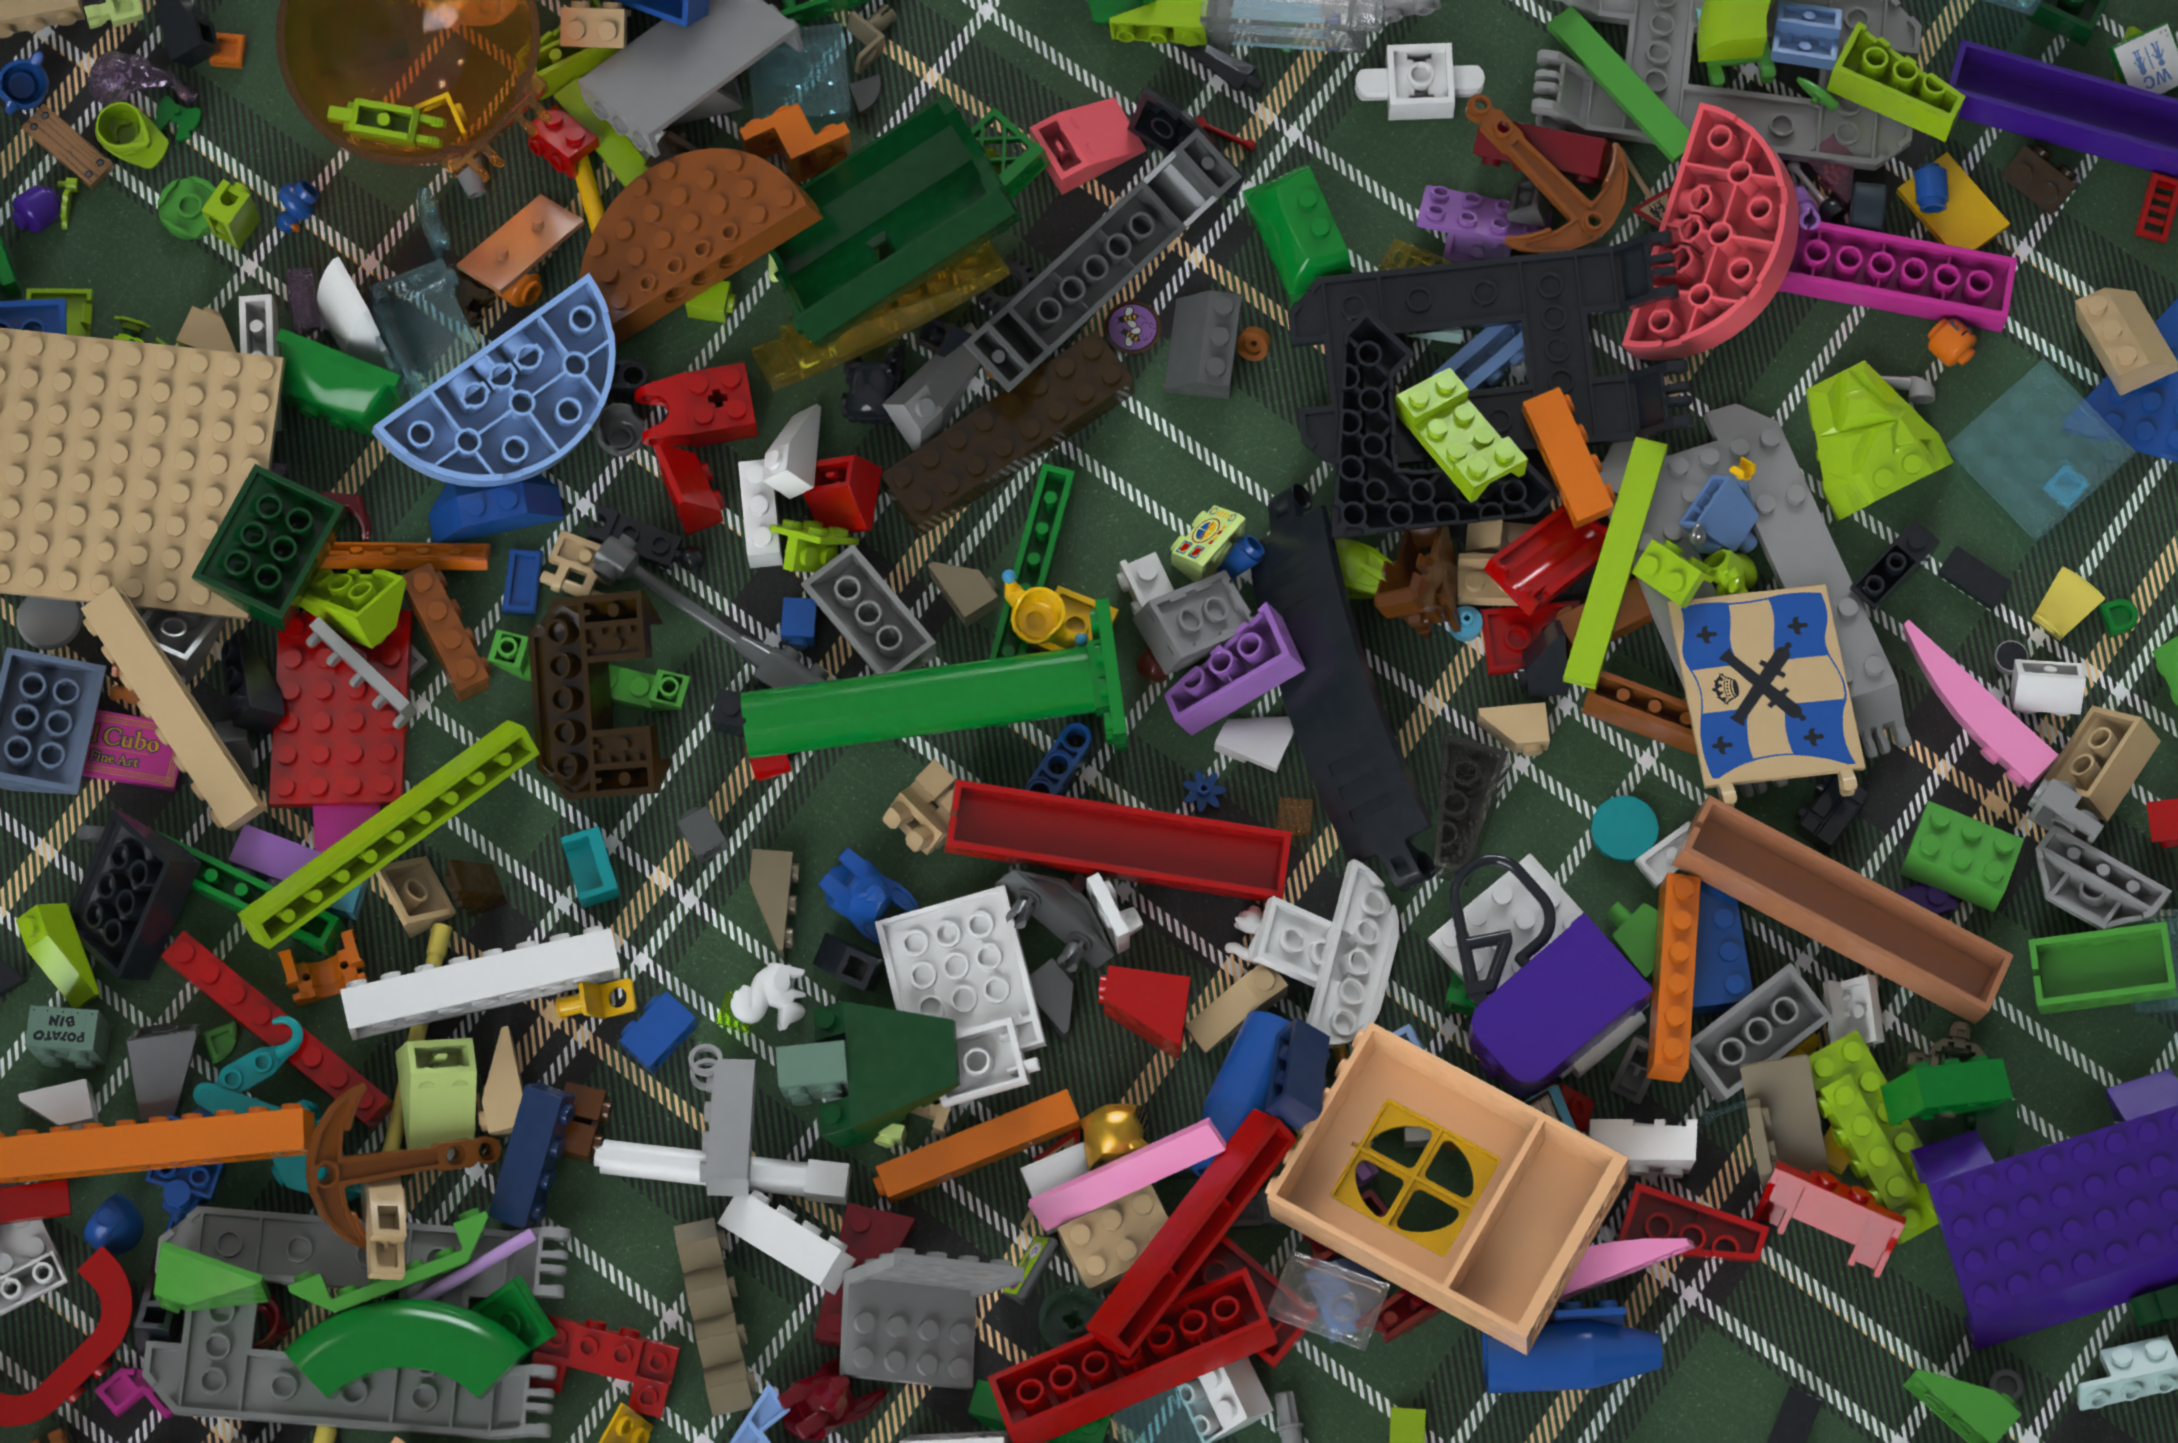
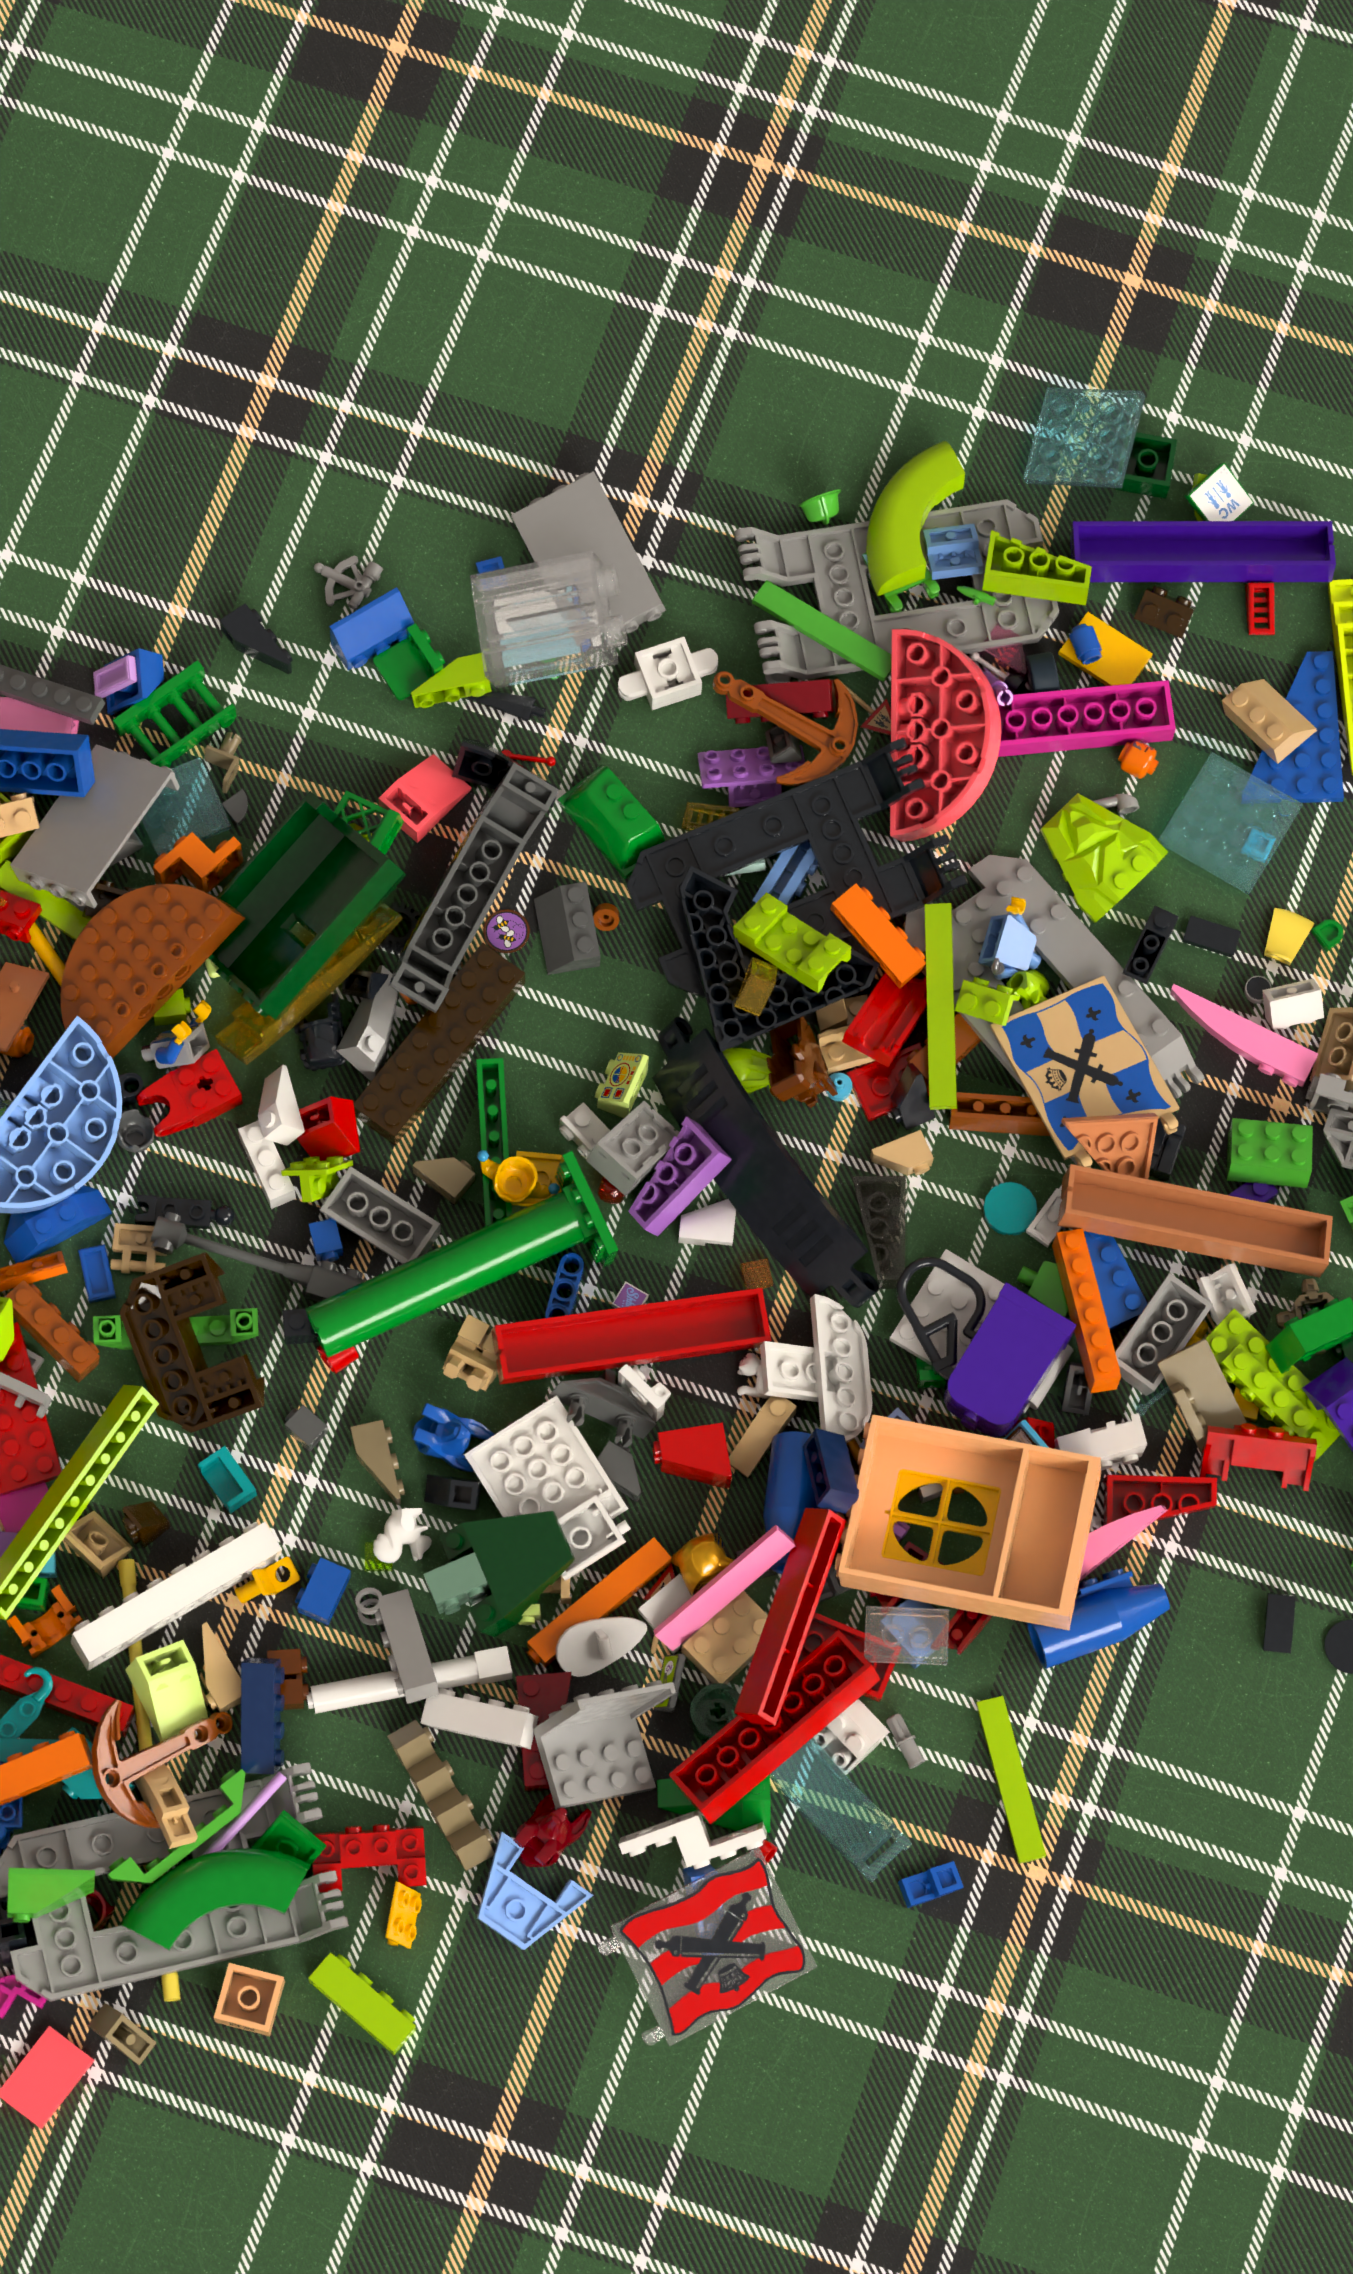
camera: 25 degrees left, 0 degrees up
(689, 488) = (205, 1162): red slope -> none
(705, 344) = (182, 1044): none -> torso
(959, 1194) = (597, 1643): none -> white shield
(1134, 795) = (629, 1296): none -> medium lavender tile
(1203, 796) = (680, 1281): blue plant -> none
(1242, 556) = (652, 1086): blue cone -> none
(1399, 473) = (756, 986): none -> clear yellow slope
(1776, 785) = (1117, 1141): none -> nougat tile

